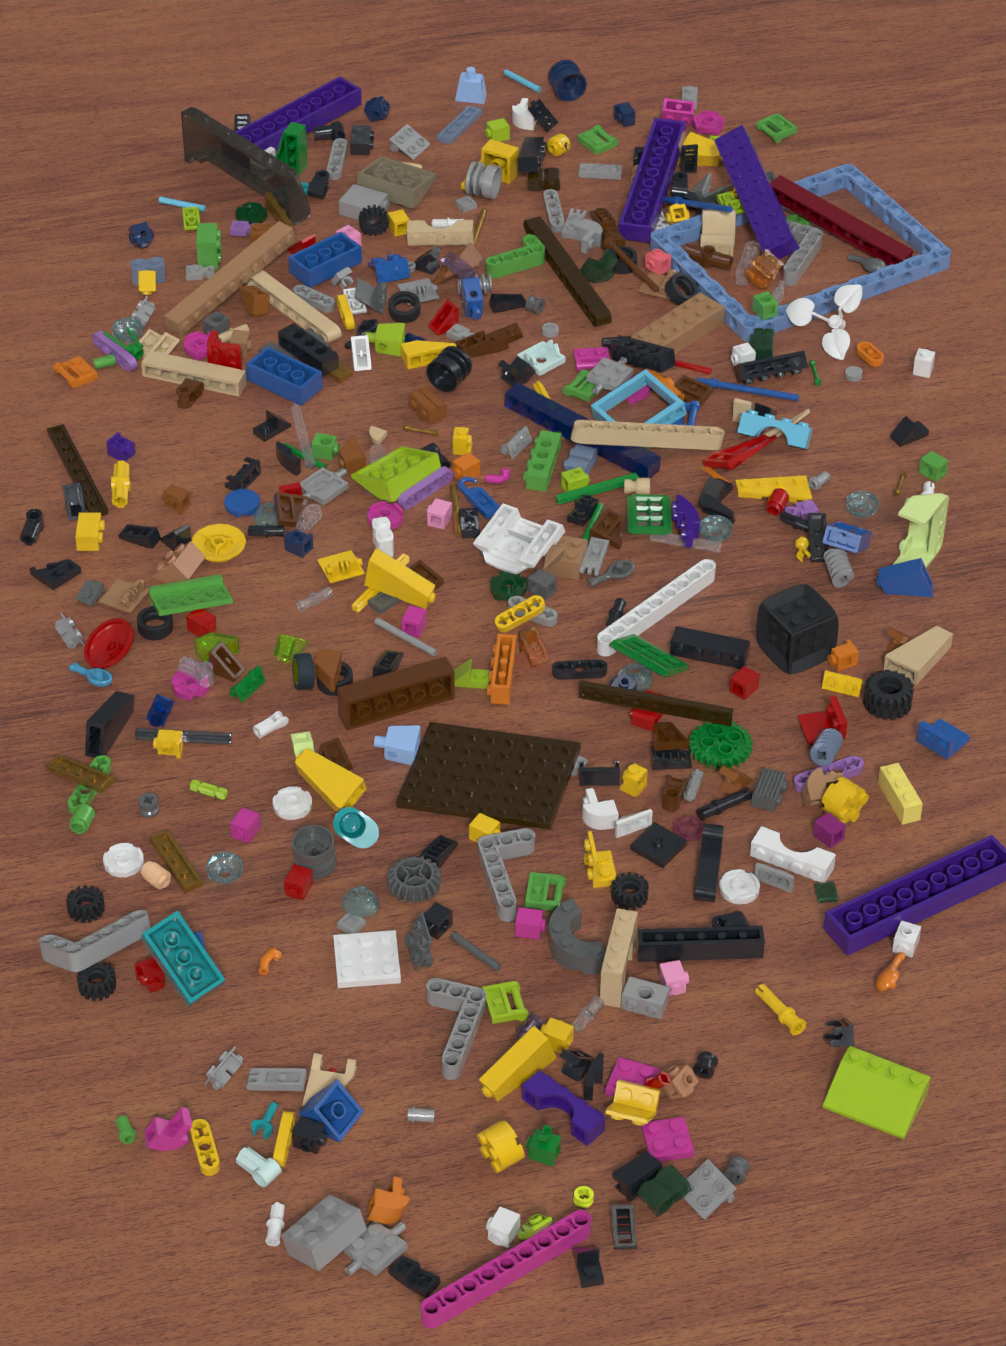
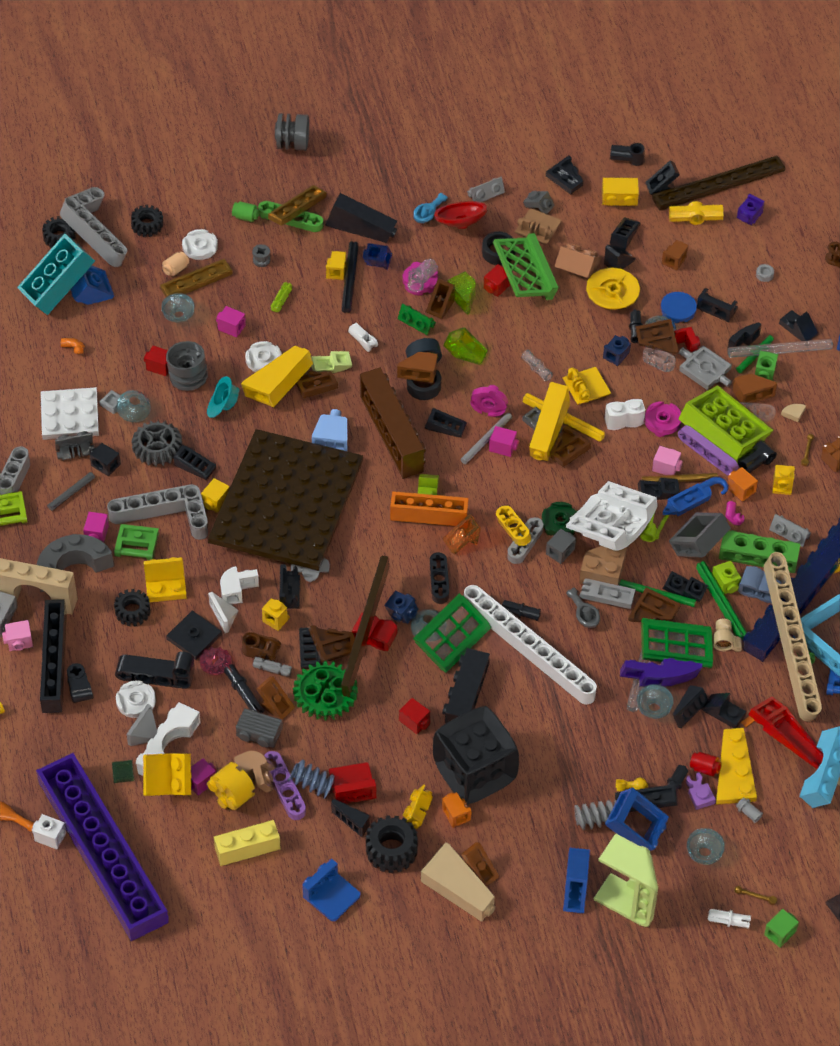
camera: 90 degrees right, 10 degrees up
(201, 445) = (765, 273): none -> light grey tile
(370, 624) = (489, 400): none -> dark pink plate
(546, 497) = (699, 534): none -> dark grey window
(837, 840) = (167, 774): none -> yellow bracket
(863, 722) = (355, 819): none -> black slope

